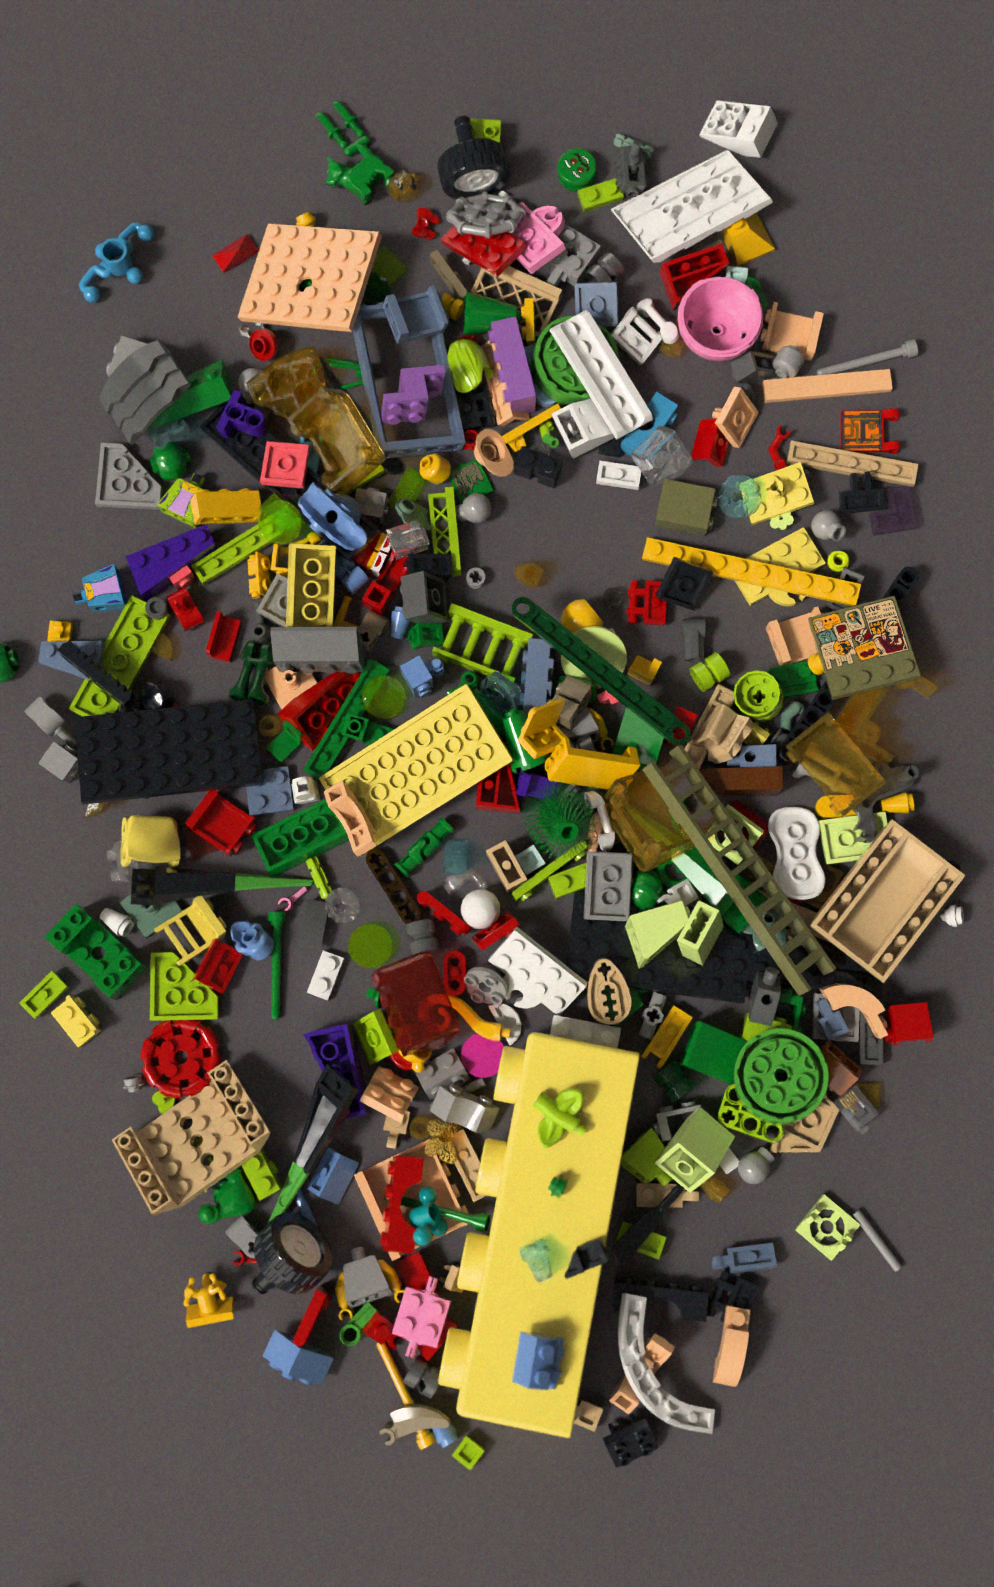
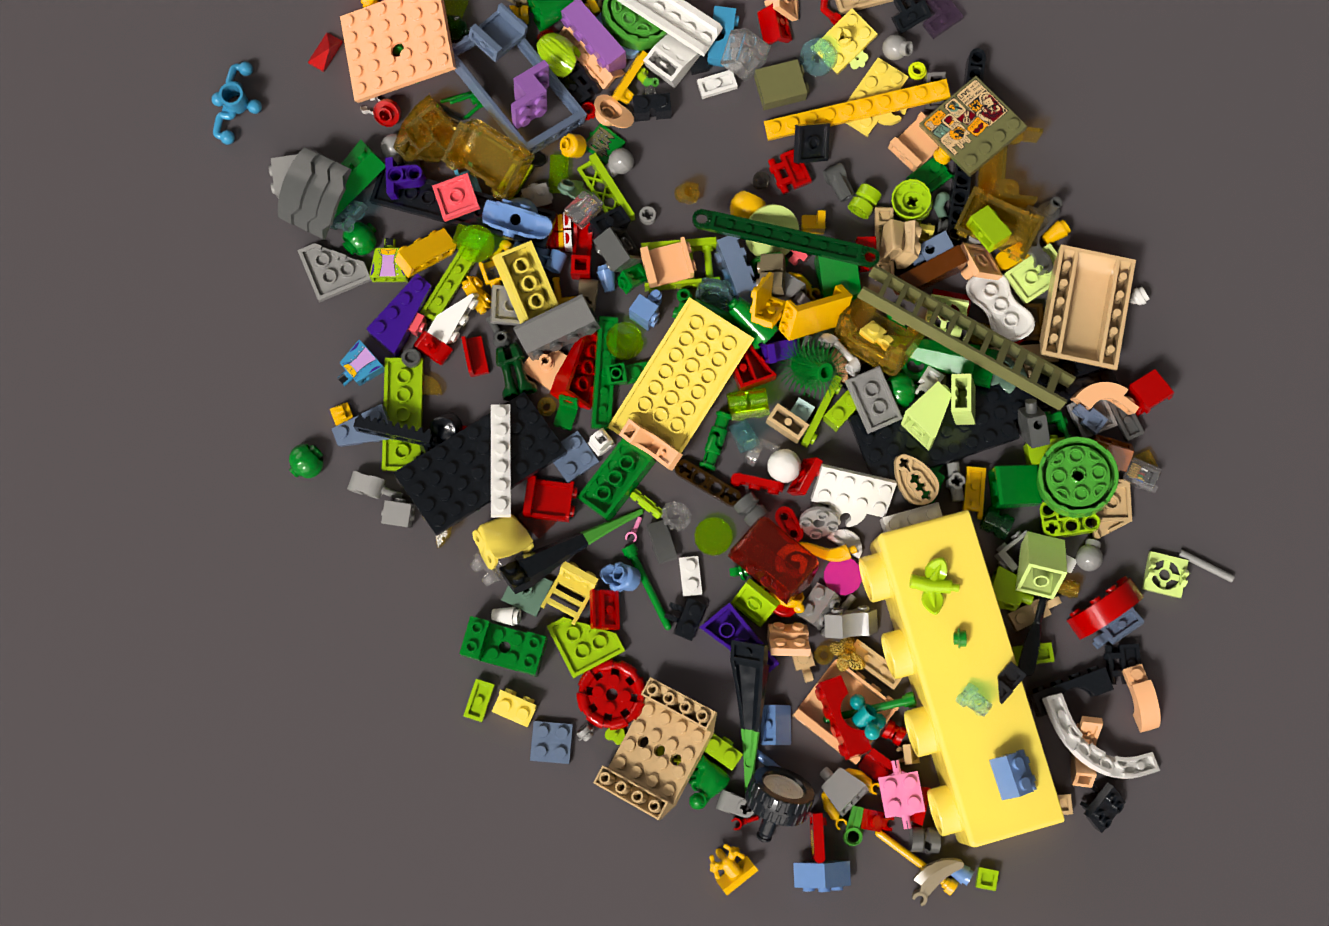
camera: 30 degrees left, 0 degrees up
(95, 1075) = (551, 742): none -> sand blue plate
(187, 759) = (500, 461): none -> white plate
(214, 590) = (448, 323): none -> white slope
(300, 1019) = (688, 619): none -> black hinge
(445, 1245) = (891, 728): none -> red wheel
(466, 638) = (668, 263): none -> light nougat panel
(475, 826) = (748, 404): none -> clear neon green plate
(647, 818) = (876, 334): none -> light yellow plate
(744, 1232) = (1105, 609): none -> red brick
(797, 796) = (980, 263): none -> light nougat tile
(823, 765) = (989, 228): none -> lime brick

